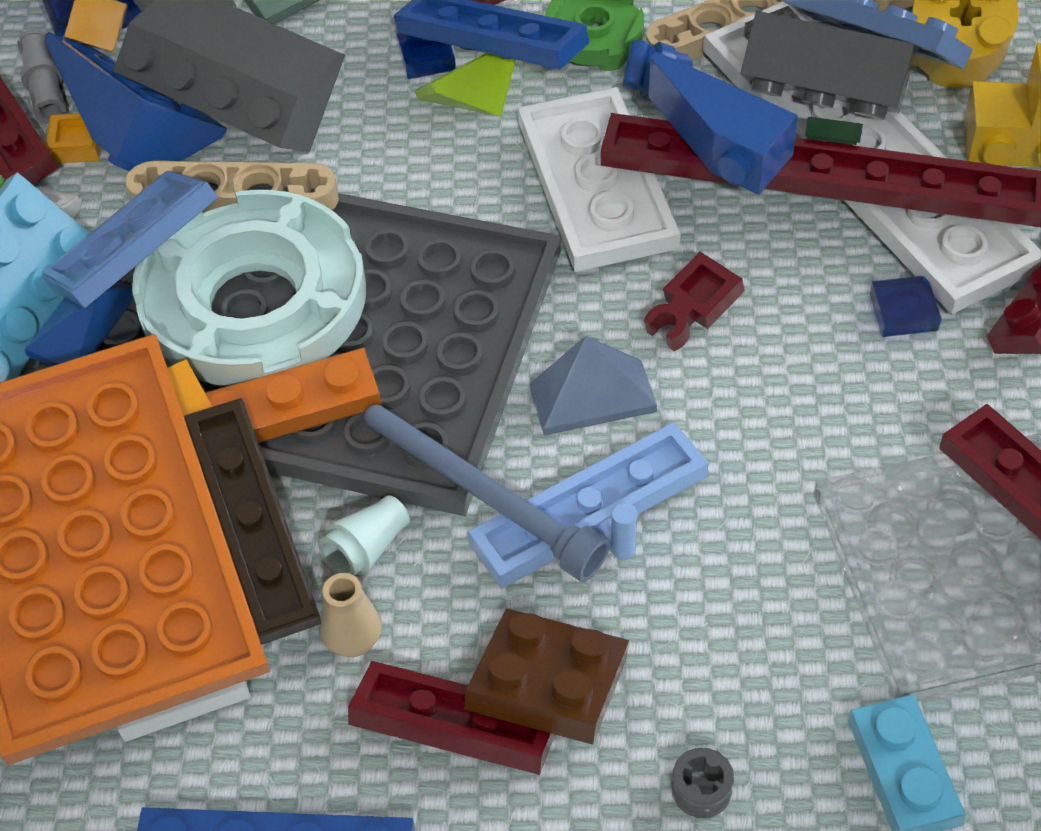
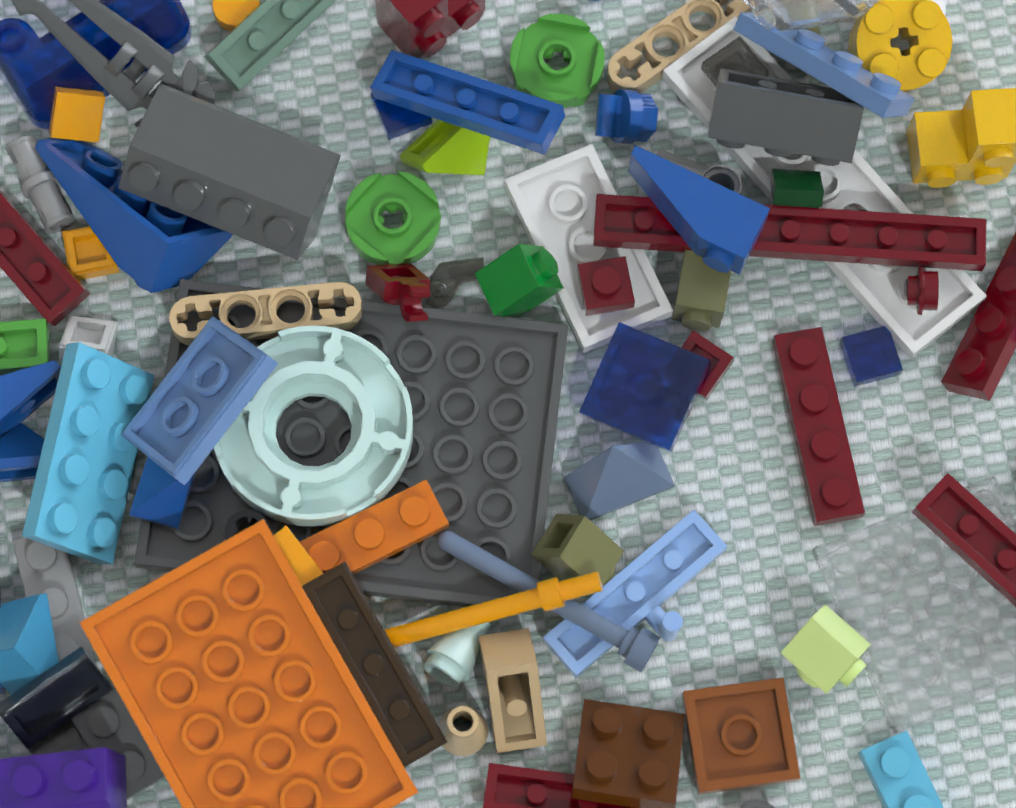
camera: 15 degrees left, 20 degrees up
(383, 183) = (400, 286): none -> dark red plate
(395, 157) = (390, 194): none -> bright green plate
(419, 587) = (513, 690): none -> tan slope
(442, 190) = (449, 277): none -> clear smoke arm
(478, 472) = (548, 595): none -> light orange bar
(514, 186) = (519, 280): none -> green brick
(527, 446) = (576, 548): none -> olive brick
(608, 201) = (605, 286): none -> dark red plate
(636, 296) = (645, 387): none -> clear blue plate
(696, 674) = (740, 736): none -> dark orange plate
(716, 220) = (700, 294): none -> olive brick
(816, 585) = (827, 651): none -> yellowish green brick
(836, 370) = (818, 426): none -> dark red plate
(970, 234) = (923, 290): none -> dark red plate

